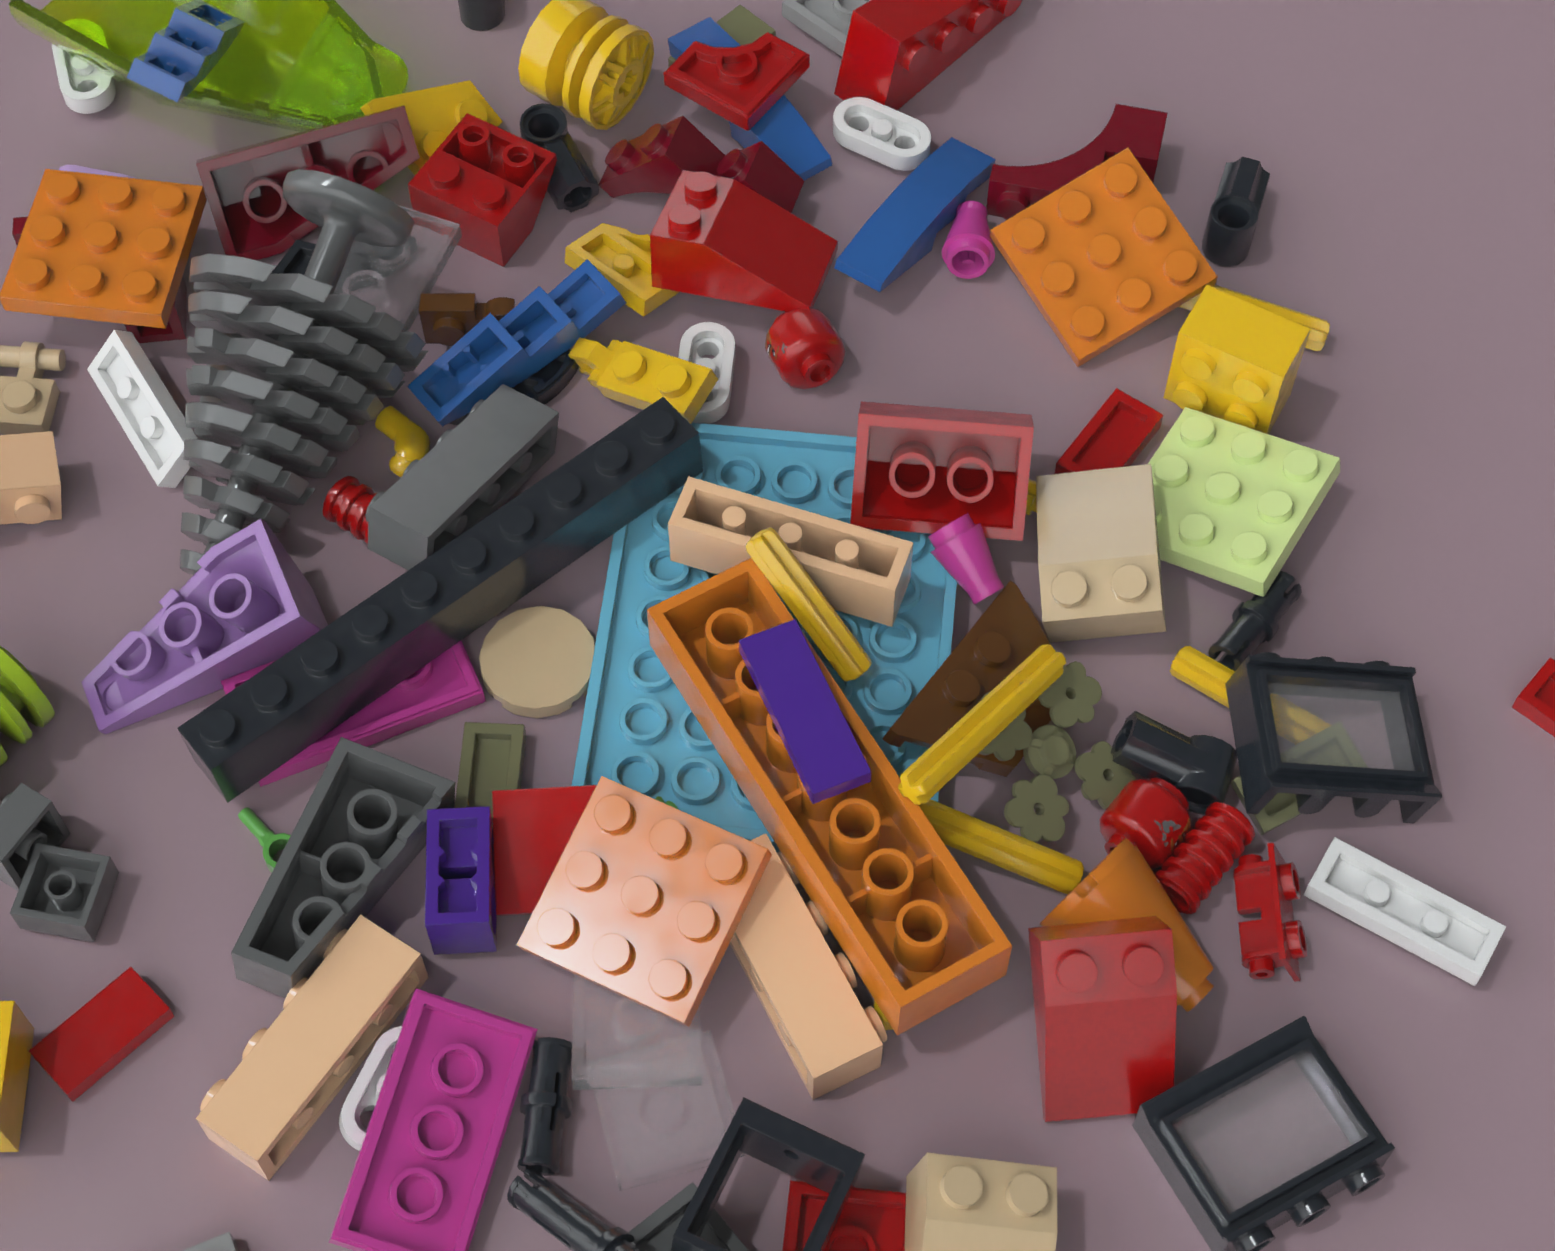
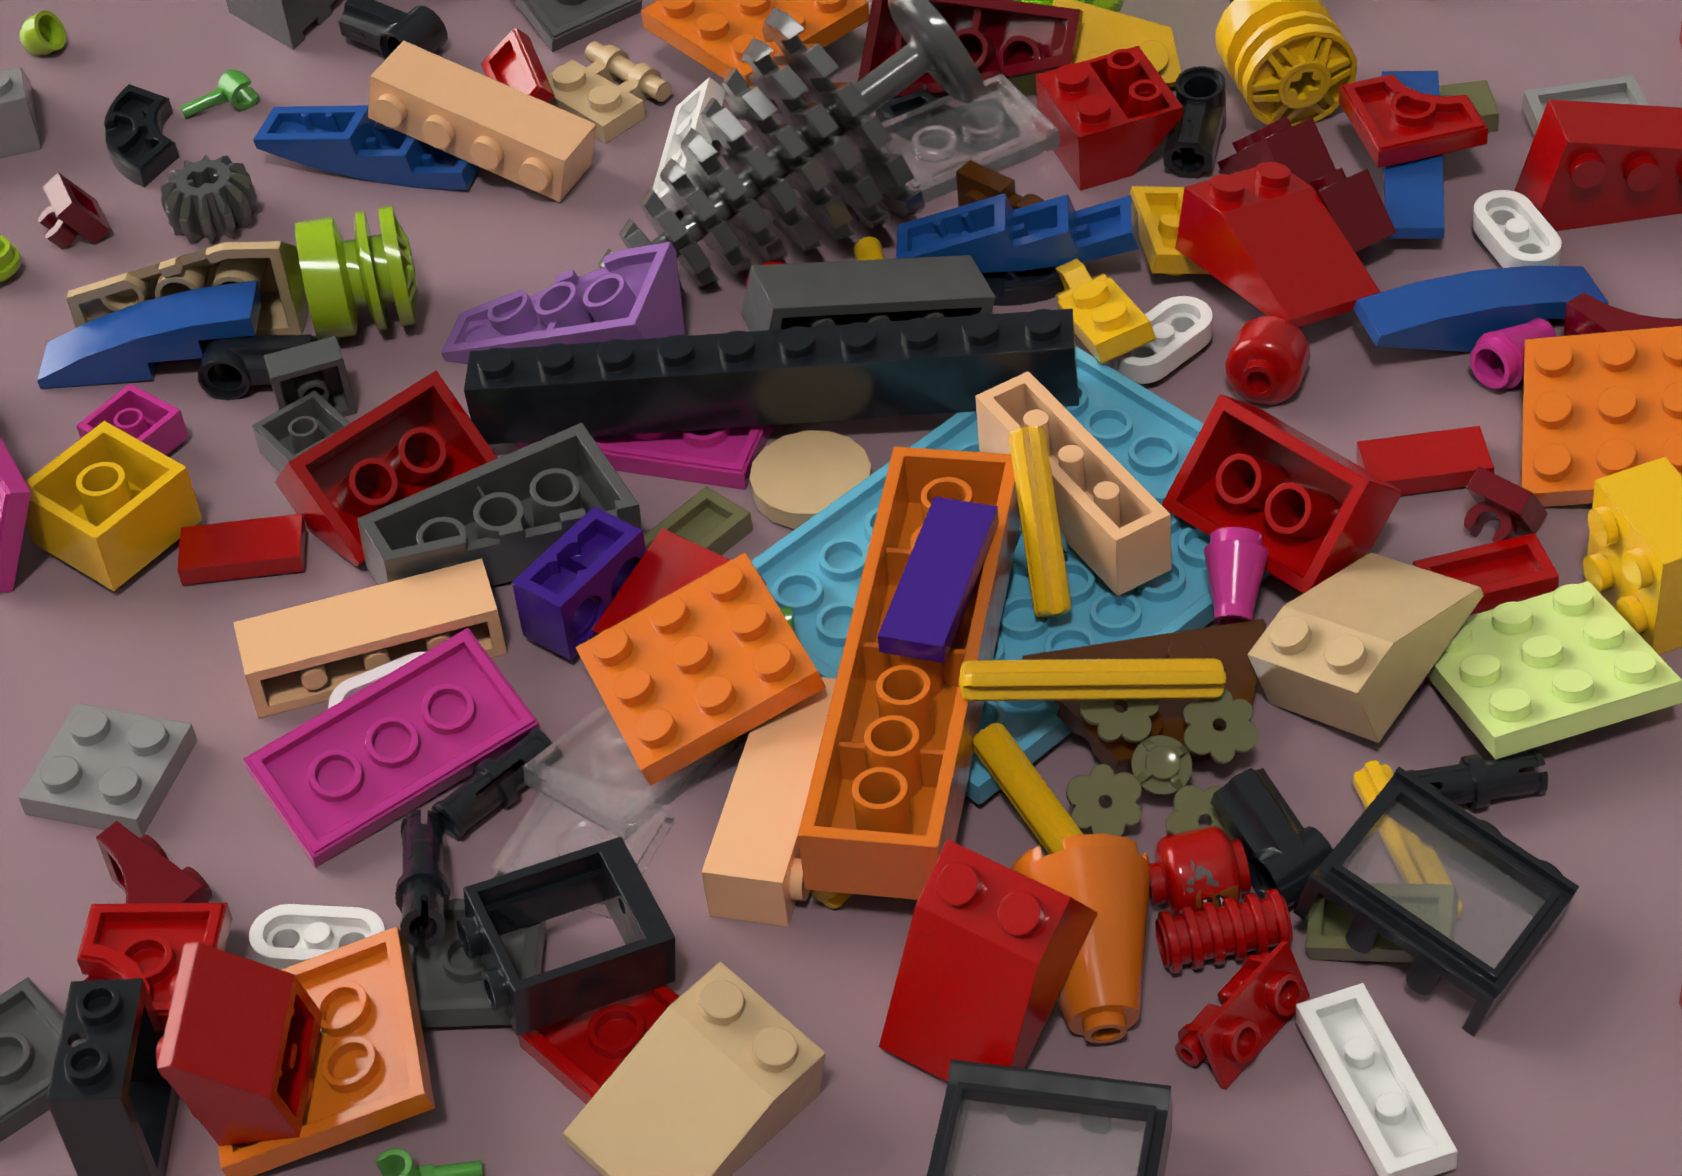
camera: 45 degrees right, 15 degrees down
(179, 879) = (381, 459): none -> red slope
(984, 368) = (1426, 459): none -> red tile
(1079, 375) = (1503, 502): none -> dark red tile

